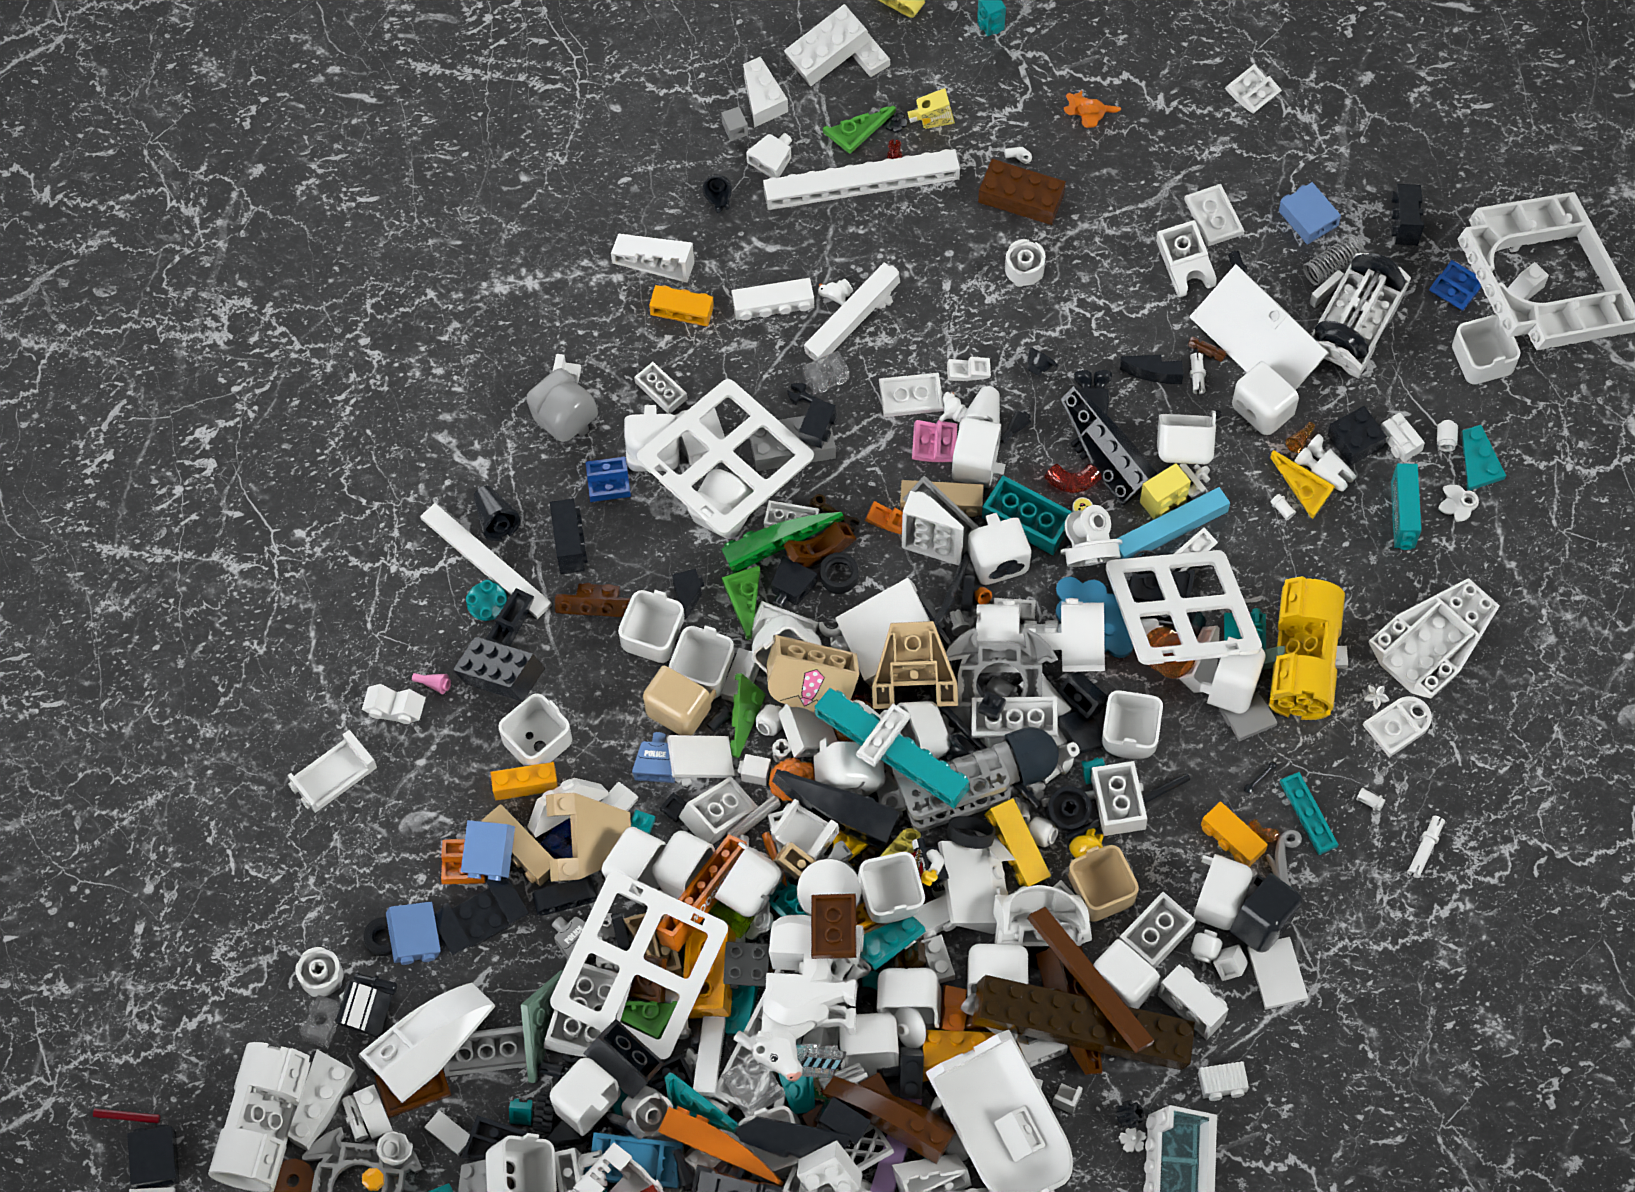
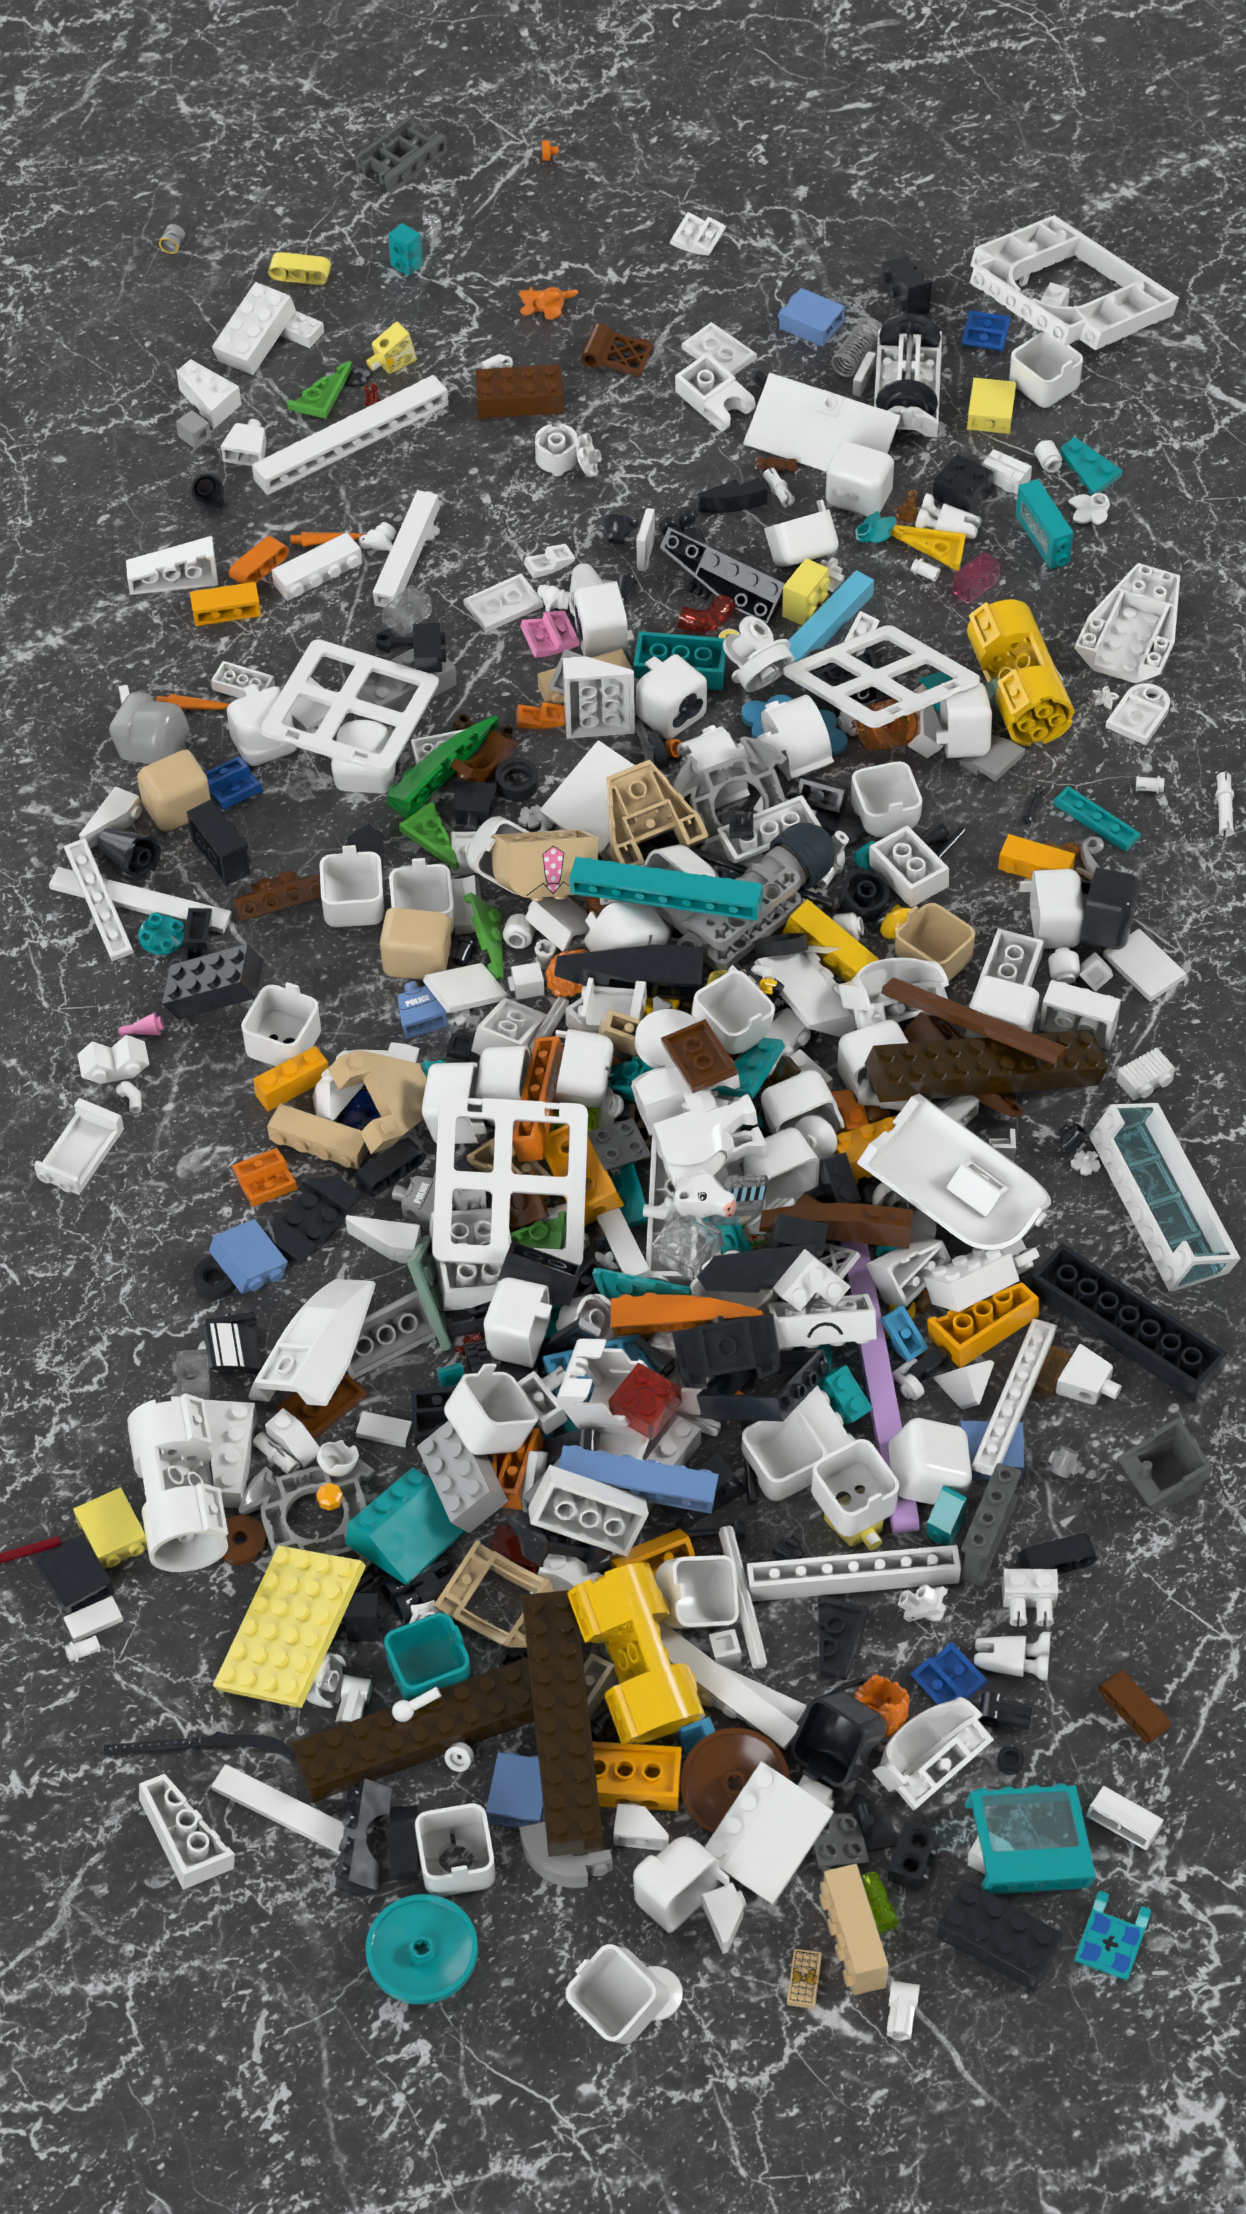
camera: 25 degrees left, 10 degrees down
(197, 1127) = (111, 1528): none -> light yellow panel
(330, 977) = (165, 1331): white brick -> none
(397, 740) = (134, 1095): none -> white arm
(451, 548) = (98, 899): none -> white tile
(487, 850) = (289, 1147): medium blue brick -> none
(498, 474) = (116, 813): none -> white slope
(535, 964) = (389, 1238): none -> white slope
(551, 1082) = (475, 1337): none -> clear red plant
(553, 474) = (172, 788): none -> tan piece
(607, 387) = (193, 703): none -> orange bar
(728, 275) = (259, 561): none -> orange beam
(786, 269) = (316, 538): none -> orange bar
(834, 611) = (530, 817): none -> white plant
(883, 735) = (654, 875): white tile -> none
(1047, 279) = (587, 455): none -> white dish
(1055, 384) = (645, 539): none -> white tile
(1111, 174) = (599, 349): none -> reddish brown piece
(1158, 772) = (935, 834): none -> black cone
(1259, 449) = (875, 528): none -> teal plate
(1322, 533) = (976, 577): none -> clear pink brick
(1422, 364) = (991, 405): none -> light yellow panel

